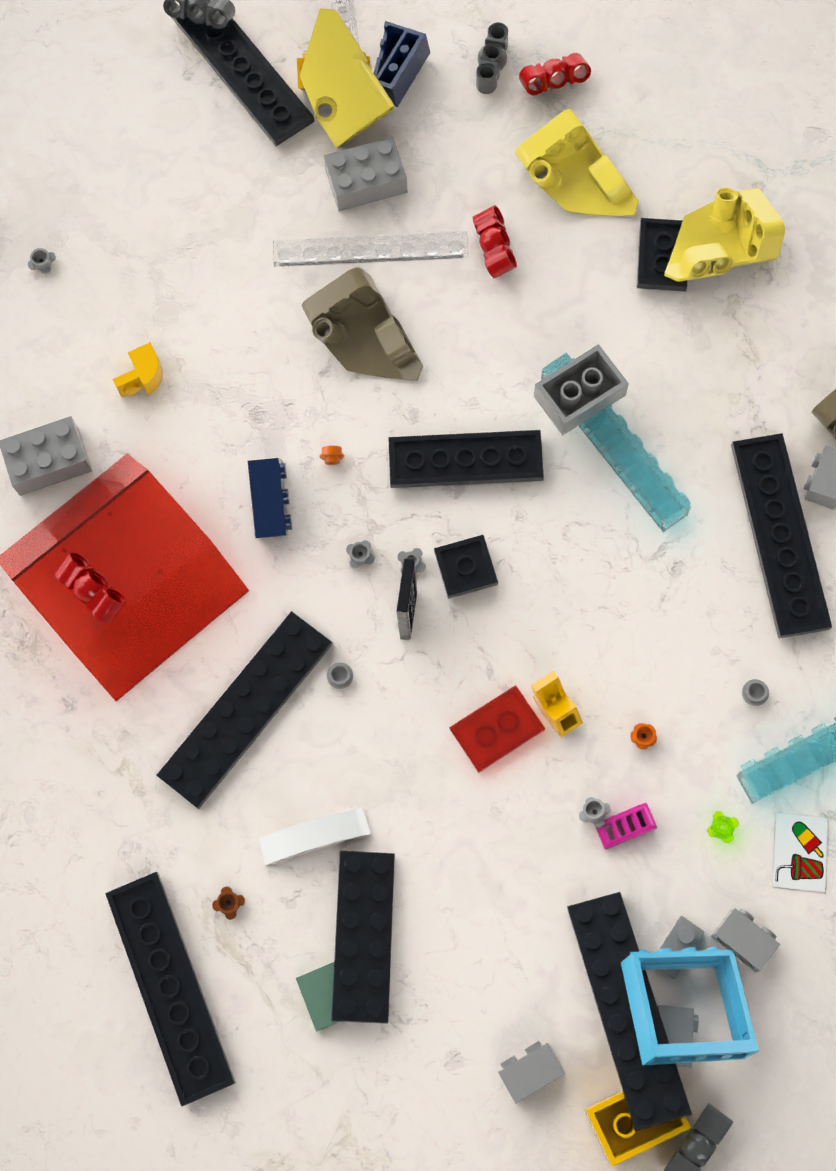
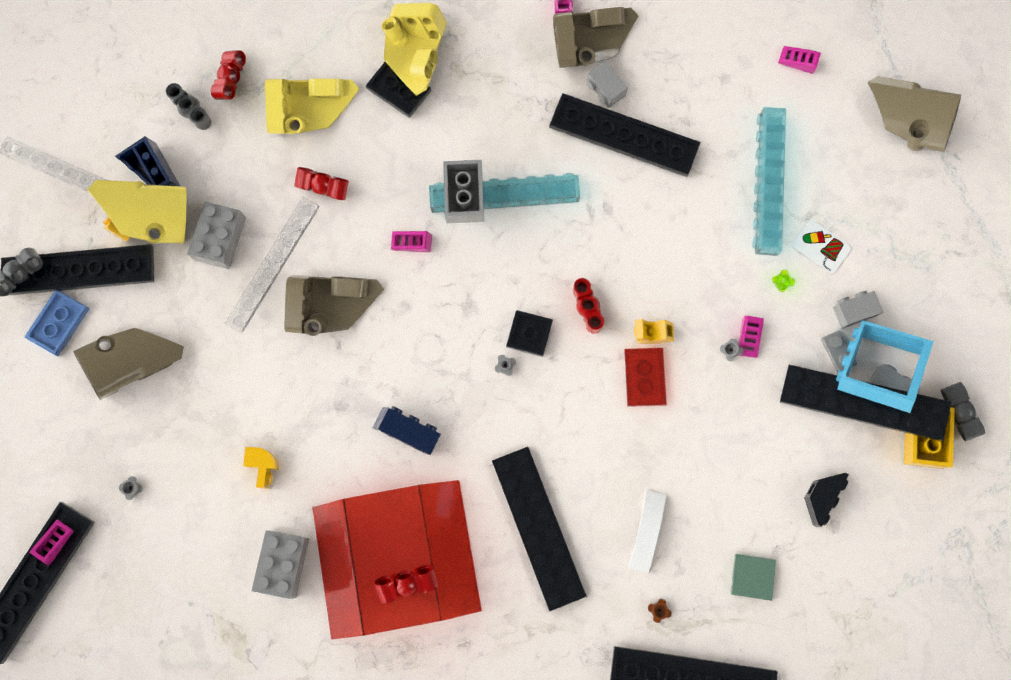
camera: 60 degrees left, 5 degrees up
(173, 83) = (57, 322): none -> medium blue tile
(178, 174) = (130, 358): none -> dark tan panel
(332, 455) = (401, 373): orange plate -> none
(340, 675) = (553, 454): light grey plate -> none
(354, 549) = (480, 399): light grey plate -> none
(363, 937) = (730, 537): black plate -> none
(407, 599) = (538, 381): black tile -> none
(465, 459) = (457, 291): black plate -> none
(481, 1025) = (823, 497): none -> black slope
(498, 390) = (419, 247): none -> dark pink slope
(531, 1071) = (867, 482): light grey brick -> none
(546, 602) = (587, 296): none -> red piece
(648, 730) = (701, 287): orange plate -> none
(755, 692) = (712, 211): light grey plate -> none

